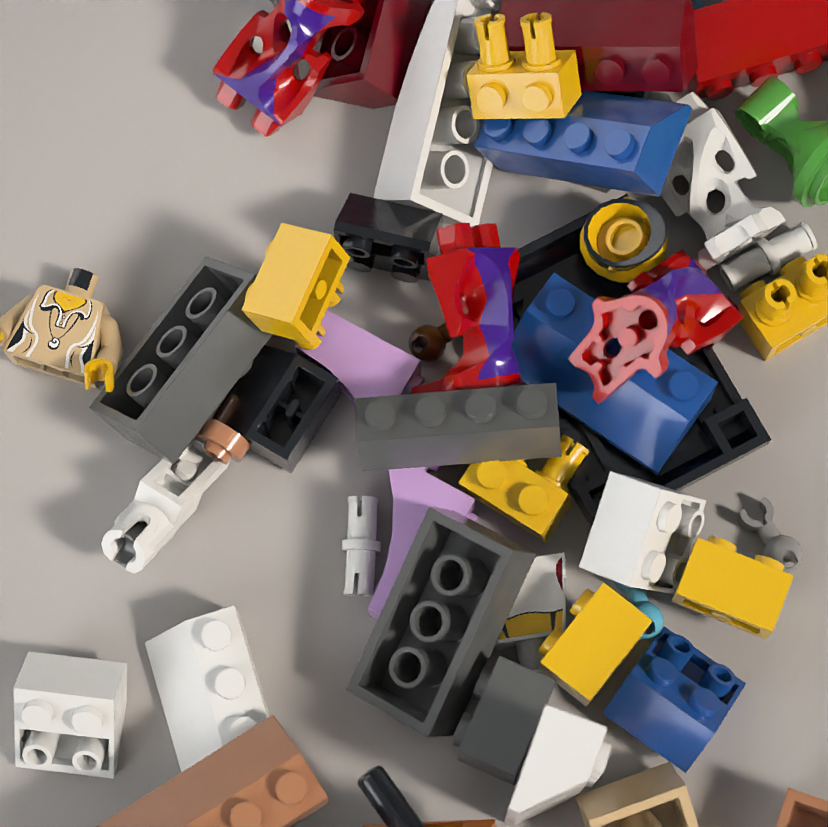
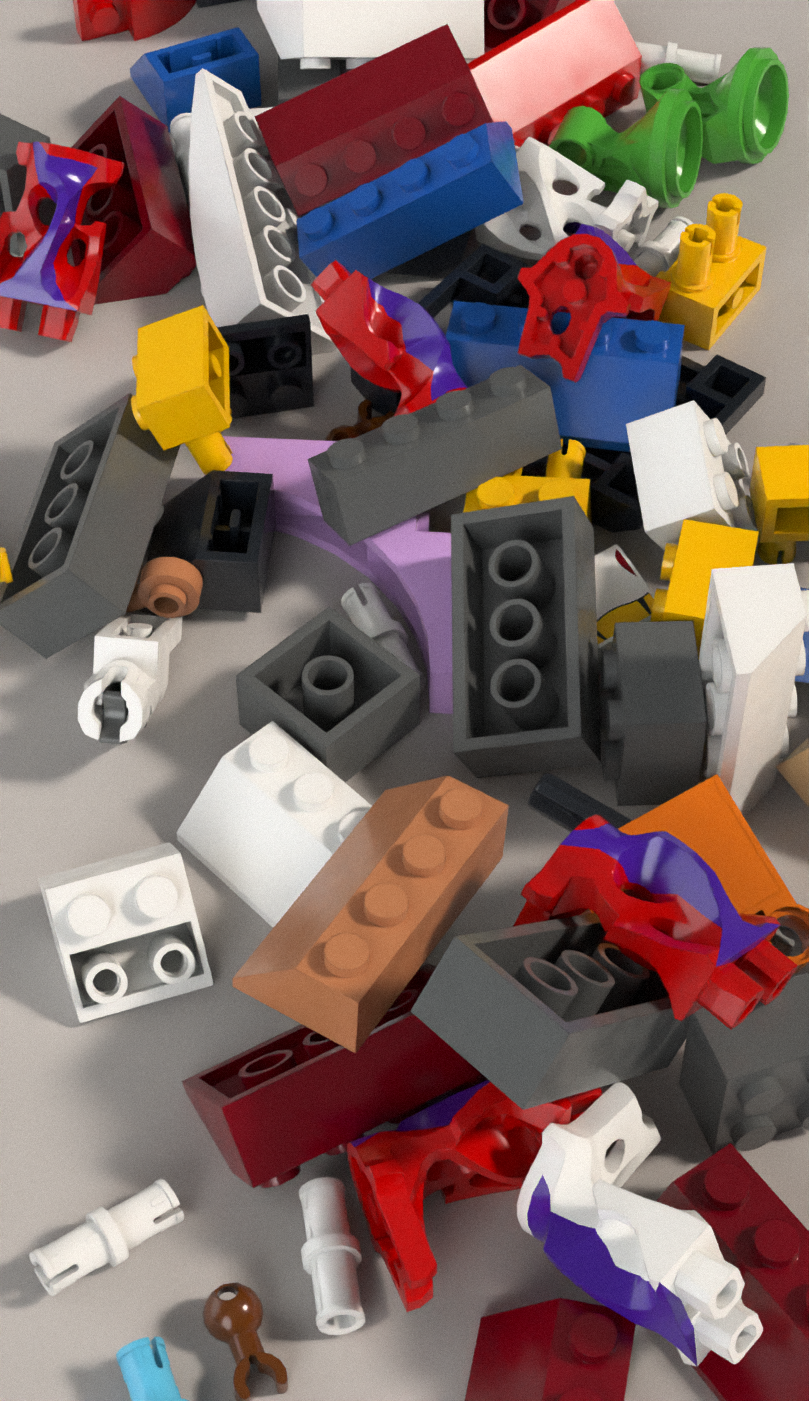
camera: 30 degrees left, 25 degrees down
(288, 593) = (332, 693): none -> dark grey brick
(522, 83) = (319, 174): yellow brick -> none
(623, 239) = (494, 257): yellow piece -> none

